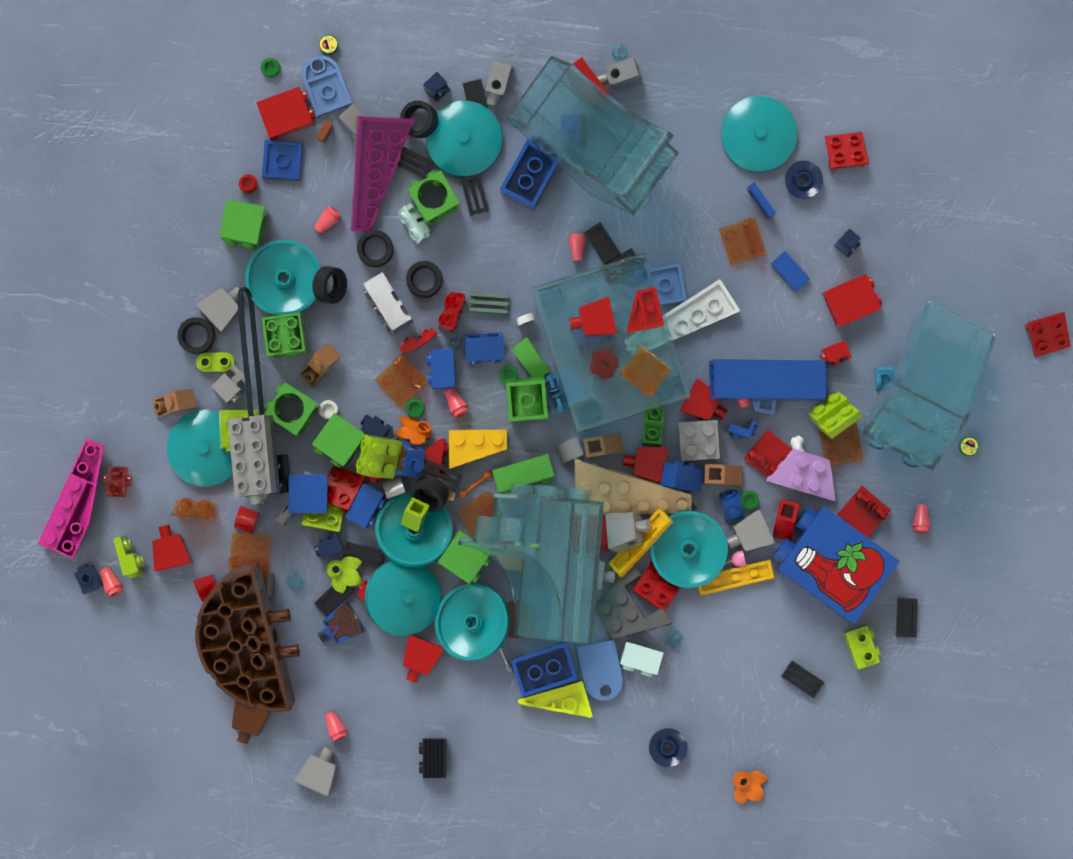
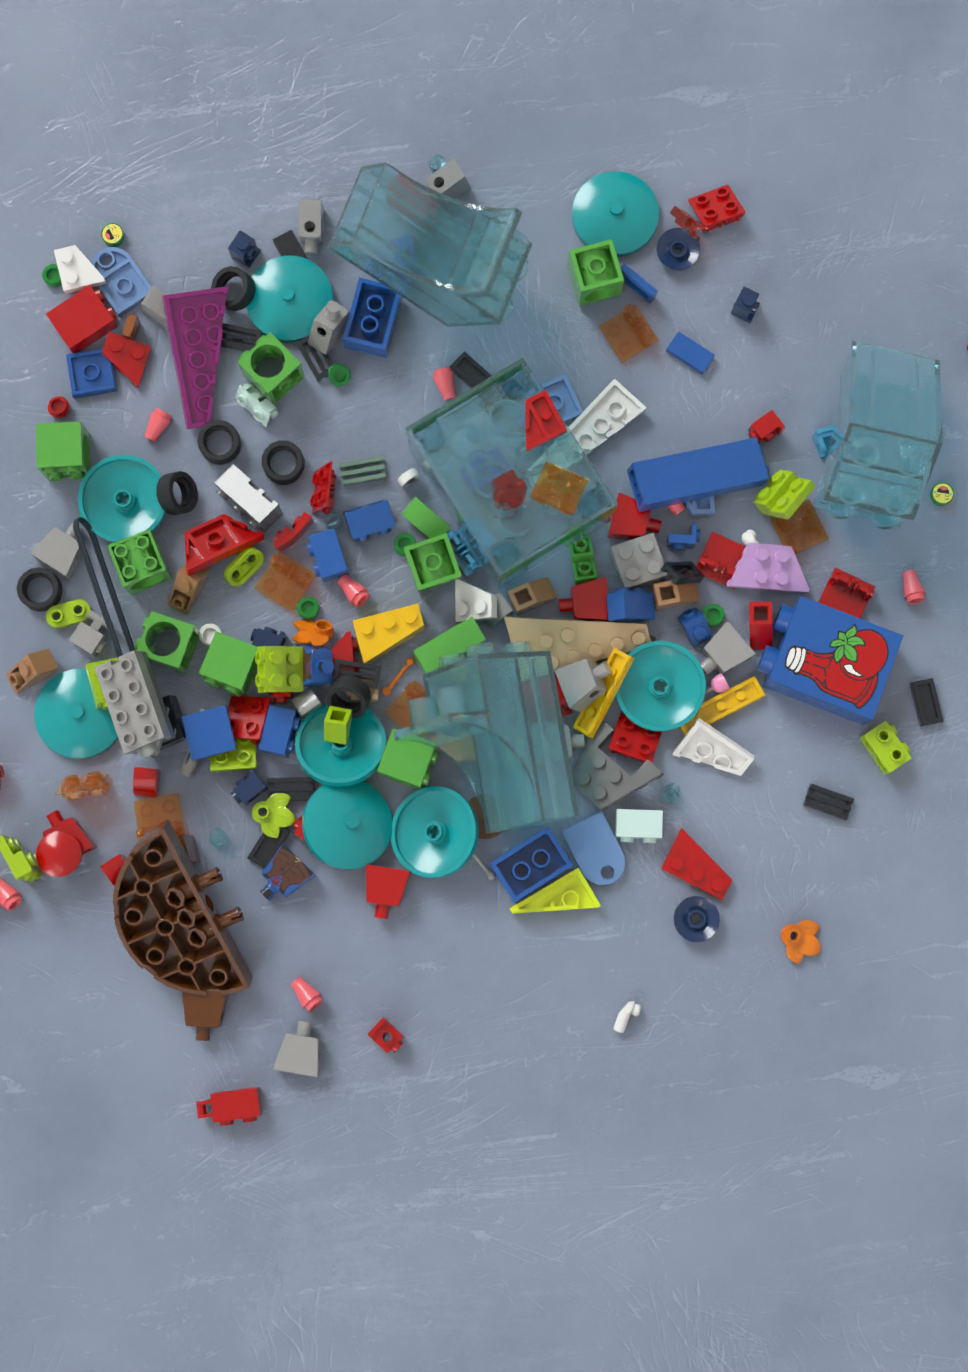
camera: 10 degrees left, 5 degrees down
(161, 562) = (58, 854): none -> red dish
(253, 800) = (232, 1105): none -> red brick
(290, 69) = (76, 270): none -> white wing
(315, 154) = (127, 356): none -> red wing
(352, 333) = (216, 541): none -> red wing
(370, 360) = (244, 567): none -> lime plate
(391, 769) = (377, 1035): none -> red brick
(434, 758) = (430, 1001): black brick -> none
(489, 215) = (339, 374): none -> green tile
(494, 171) = (333, 321): none -> light grey torso
(553, 440) = (473, 602): none -> white wing
(588, 810) = (624, 1014): none -> white arm
(595, 319) = (487, 443): red torso -> none
(678, 704) = (693, 865): none -> red wing
(719, 610) = (711, 747): none -> white wing
(727, 184) = (595, 272): none -> bright green brick
(733, 463) = (683, 575): none -> black tile
(817, 156) = (684, 219): none -> clear red plate
(852, 300) = (768, 366): red brick -> none

